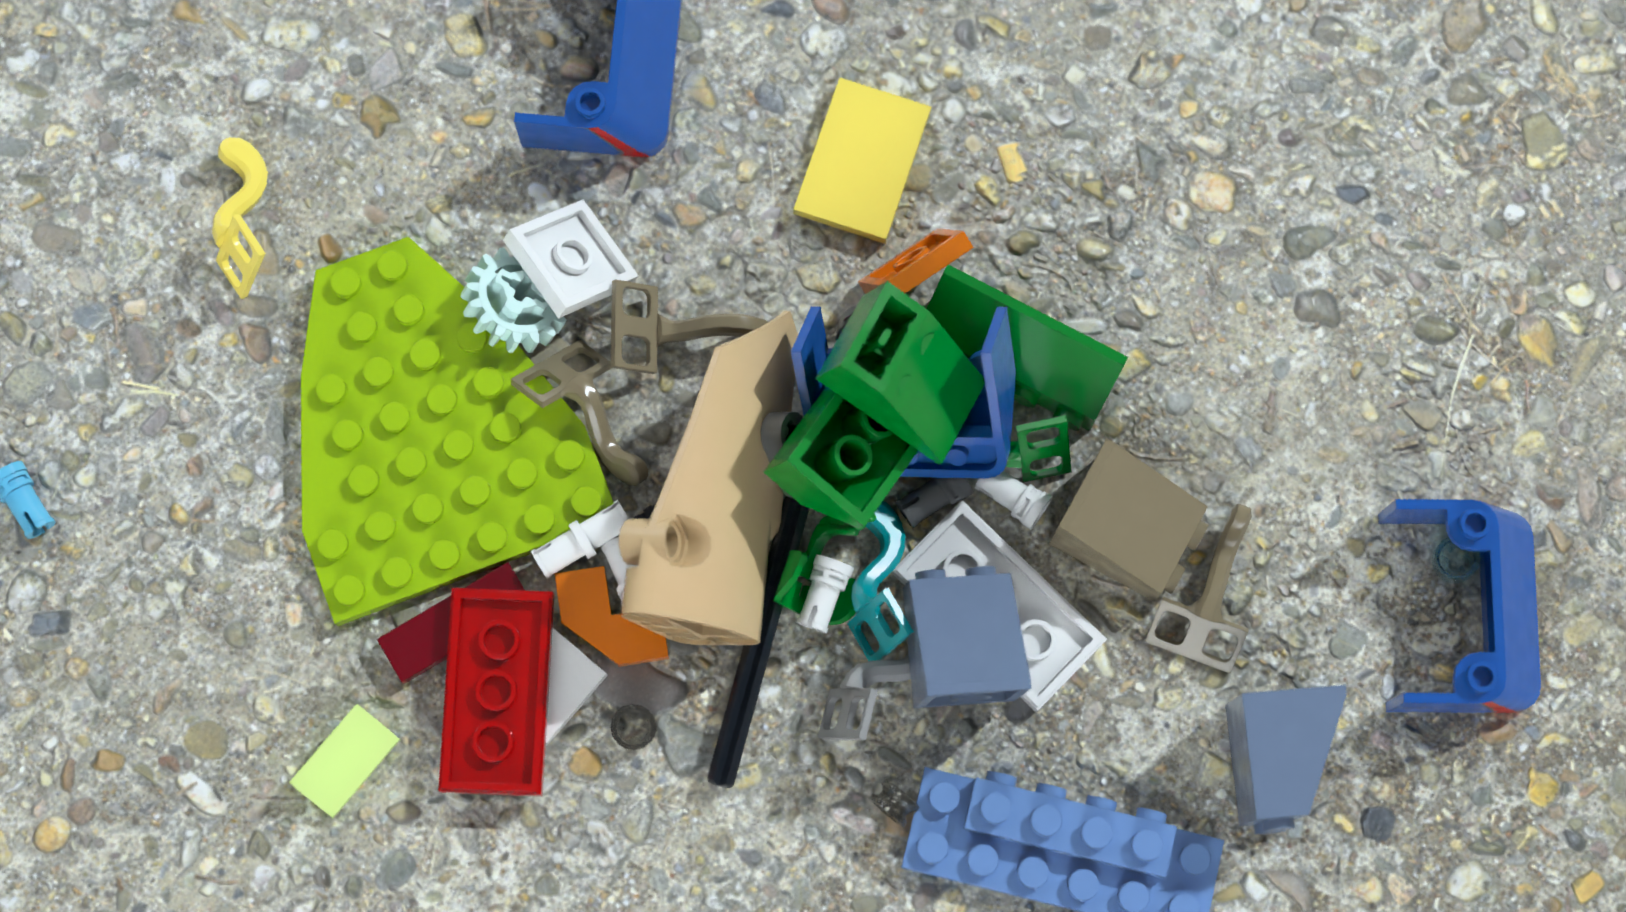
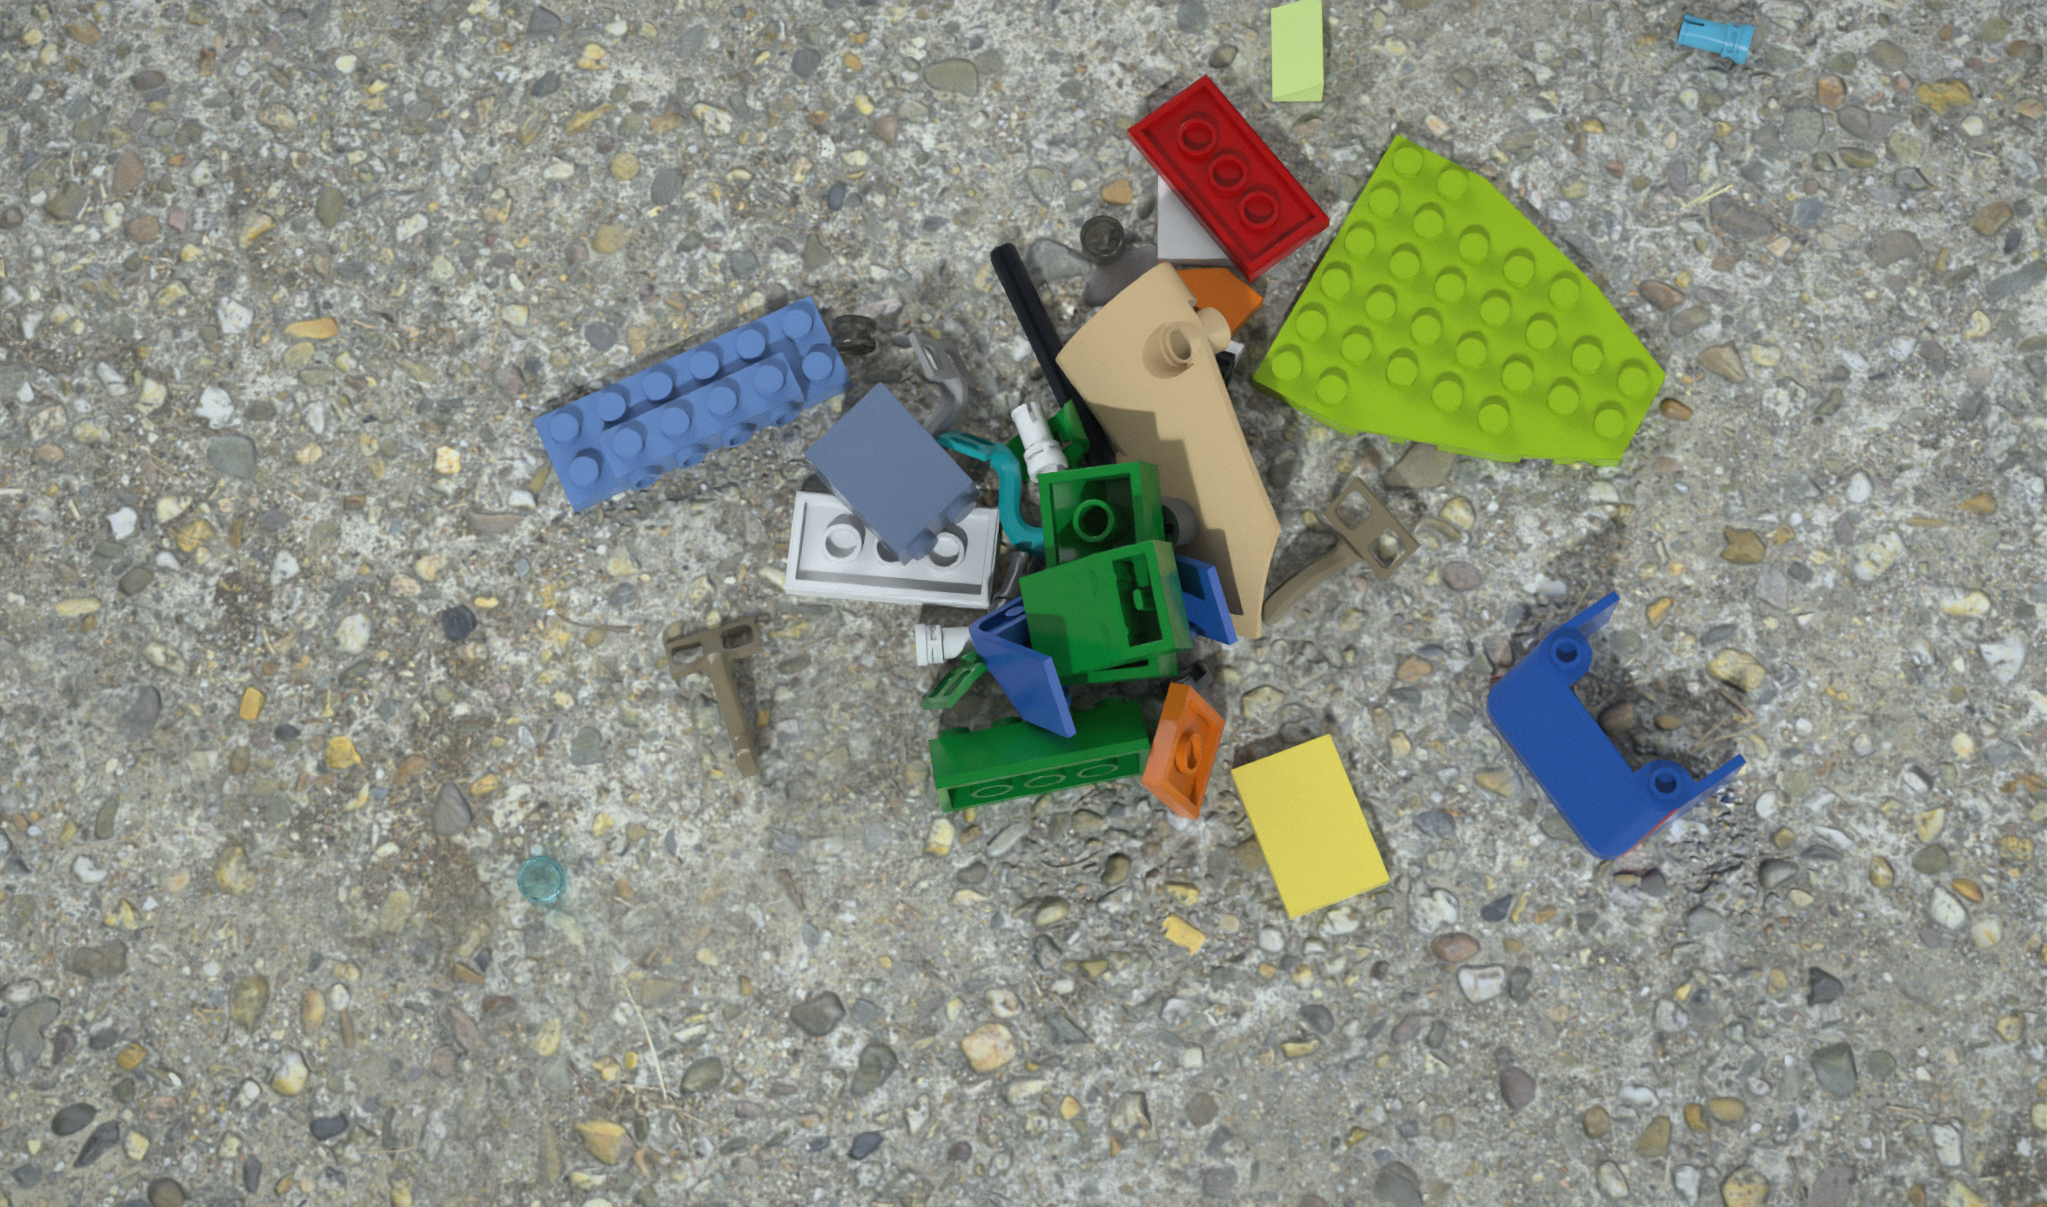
camera: 150 degrees right, 5 degrees down
(228, 219) = (1800, 417): light yellow piece -> none
(424, 638) = (1321, 173): dark red tile -> none
(508, 304) = (1491, 493): light aqua gear -> none
(569, 257) = (1472, 539): white tile -> none
(580, 388) = (1370, 440): dark tan piece -> none
(580, 540) = (1263, 335): white pin -> none
(1131, 523) = (834, 684): dark tan slope -> none
(1280, 752) = (575, 594): sand blue slope -> none
(1508, 671) = (507, 911): blue windscreen -> none

